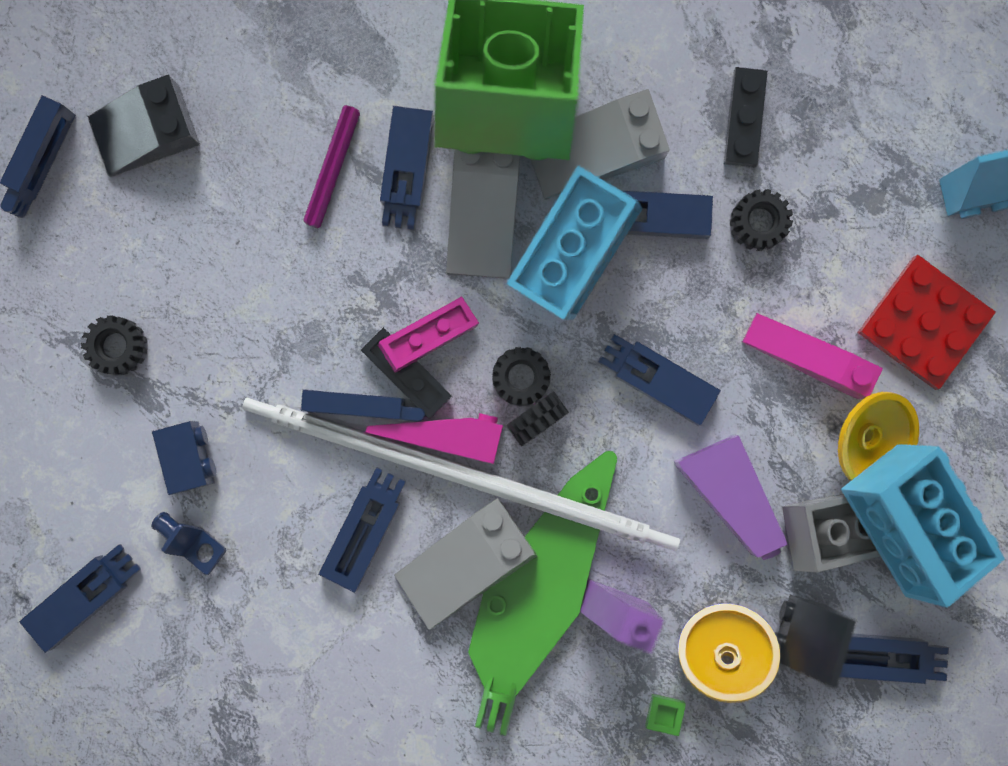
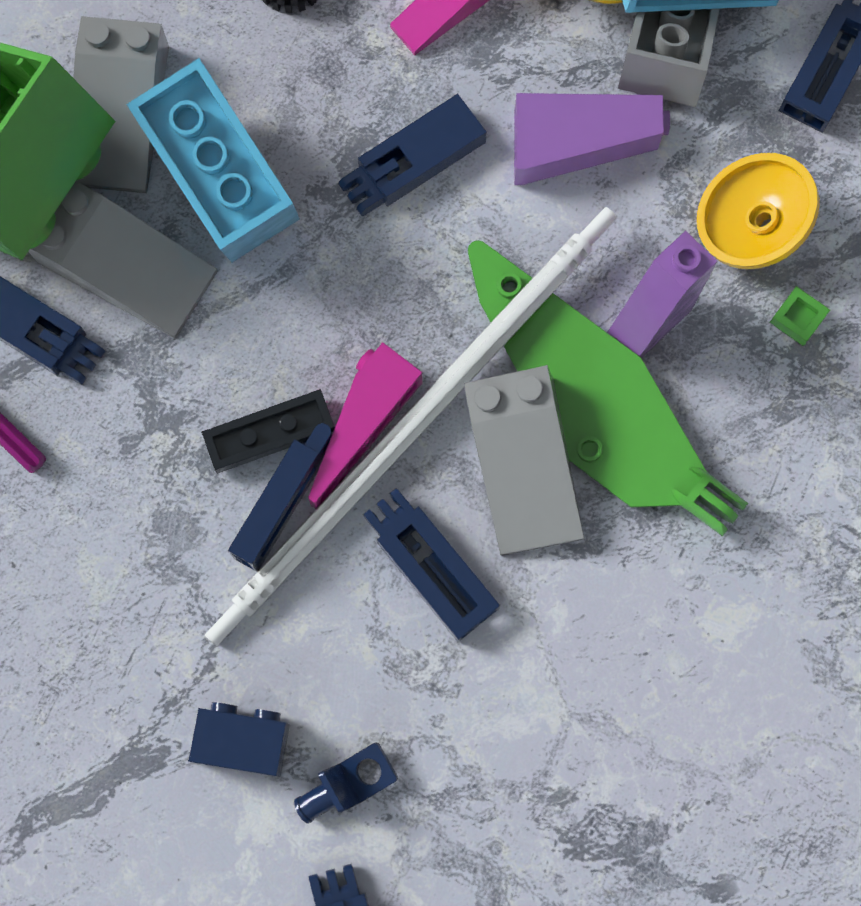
camera: 65 degrees left, 10 degrees down
(95, 345) = (34, 761): black tyre -> none
(428, 334) = (235, 382): dark pink plate -> none
(527, 357) = (327, 281): black tyre -> none
(537, 418) = (394, 301): black tyre -> none
(673, 215) = (241, 55): dark blue hinge -> none
(814, 639) = (781, 105): black slope -> none

